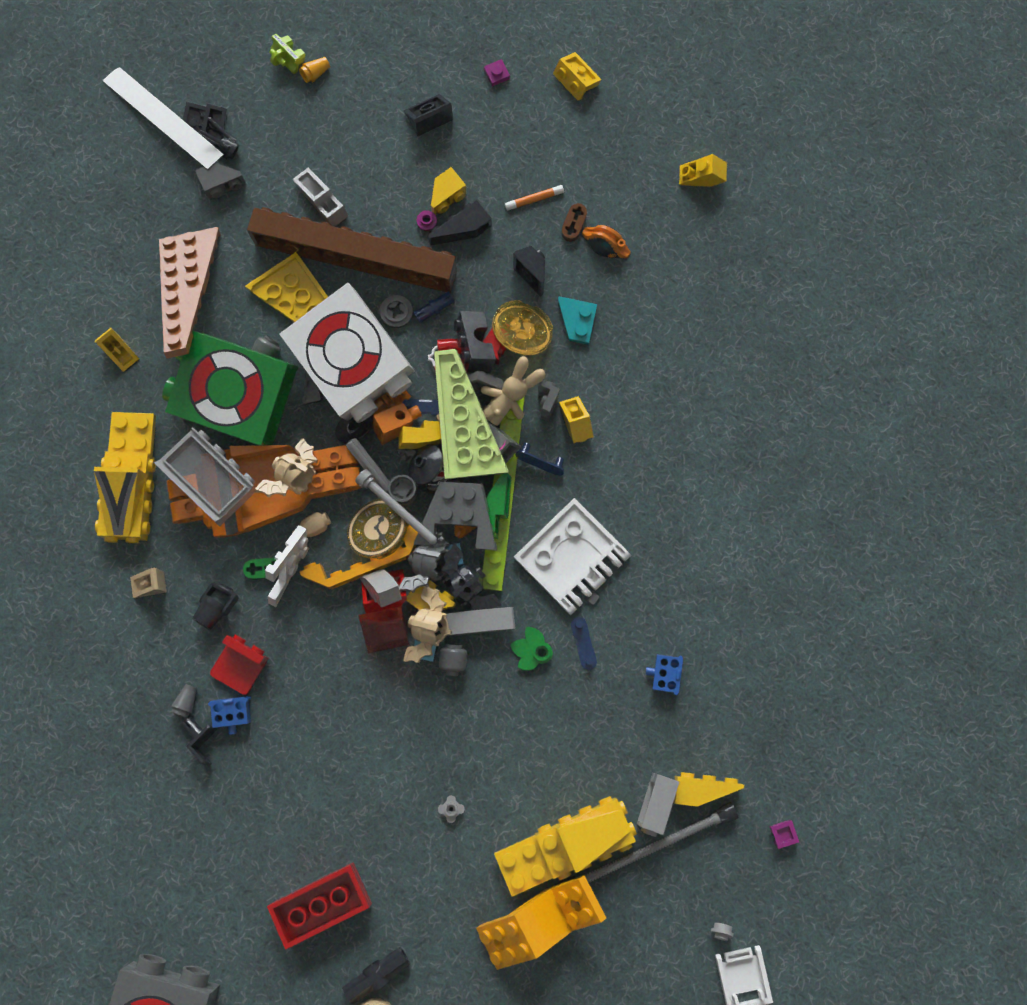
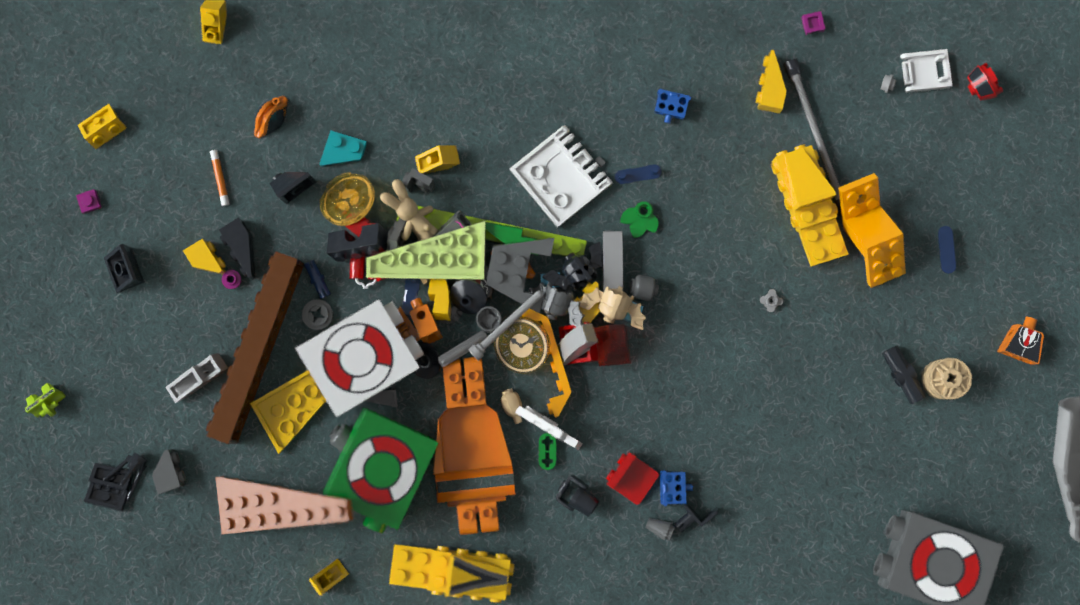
camera: 80 degrees left, 5 degrees up
(148, 583) = (551, 558): tan slope -> none
(163, 117) = (97, 525): white sticker -> none
(207, 476) = (461, 493): window -> none
(291, 472) = (465, 416): tan helmet -> none
(314, 69) = (64, 375): light orange cone -> none
(319, 905) = (844, 418): red brick -> none
(556, 468) = (480, 183): dark blue piece -> none
(578, 224) = (246, 147): reddish brown beam -> none
(657, 804) = (782, 123): light grey window -> none

